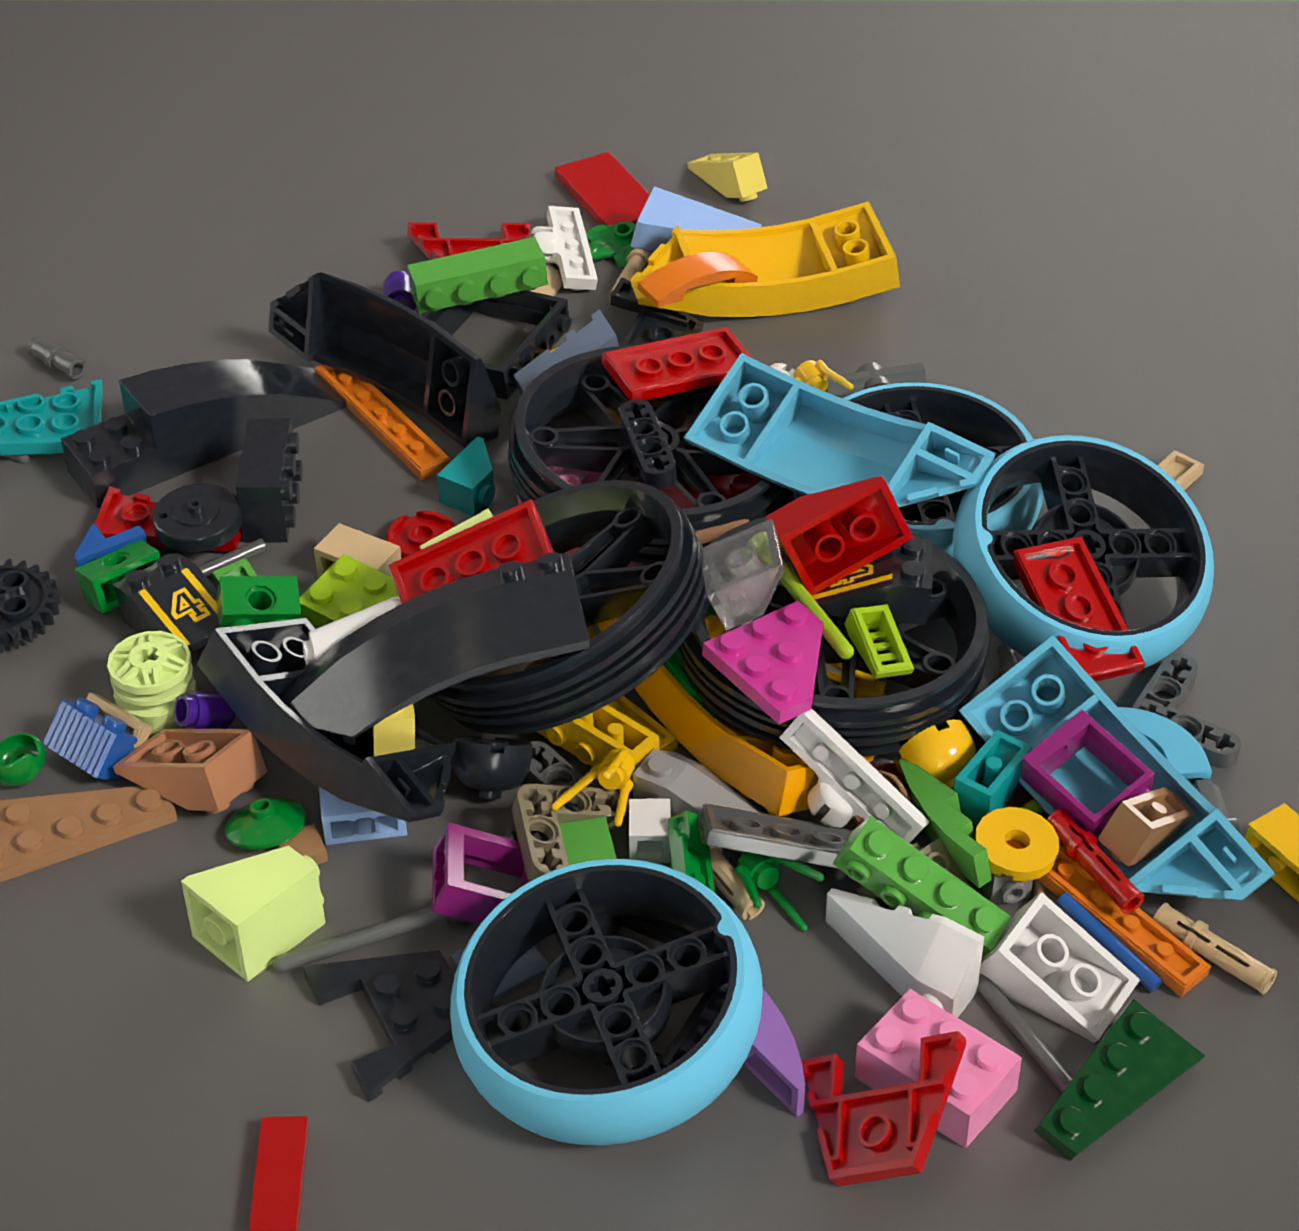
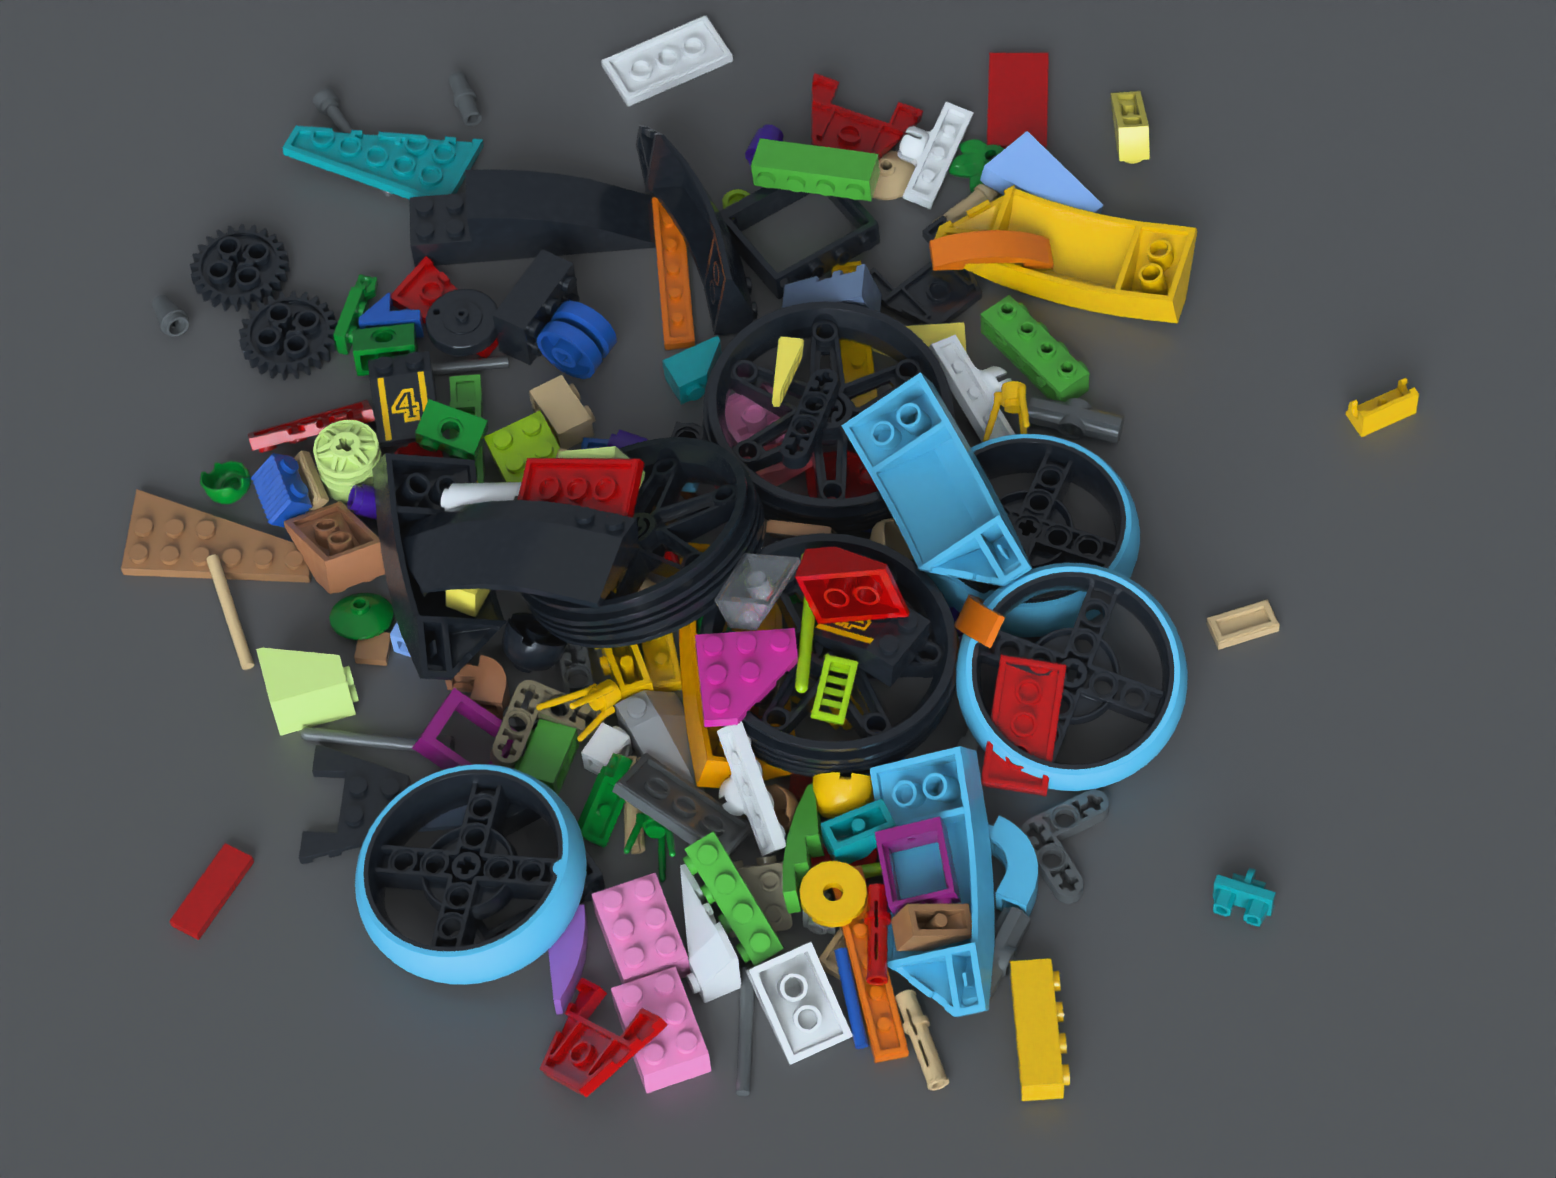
camera: 35 degrees right, 15 degrees up
(61, 554) = (355, 305): none -> green hinge
(67, 685) = (300, 429): none -> red wing
(103, 881) = (230, 612): none -> tan bar
(245, 269) = (667, 60): none -> white tile
(333, 488) = (576, 339): none -> blue wheel
(417, 530) = (626, 408): red tile -> none
(460, 809) = (485, 683): none -> nougat brick
(586, 413) = (787, 362): none -> light yellow slope
(674, 364) = (894, 347): red tile -> none
(792, 344) = (1034, 350): none -> bright green brick
(832, 980) = (640, 929): none -> bright pink brick
(976, 517) = (979, 621): none -> orange slope
(1119, 1076) = (779, 1097): dark green wing -> none
(1133, 284) = (1383, 409): none -> yellow hinge

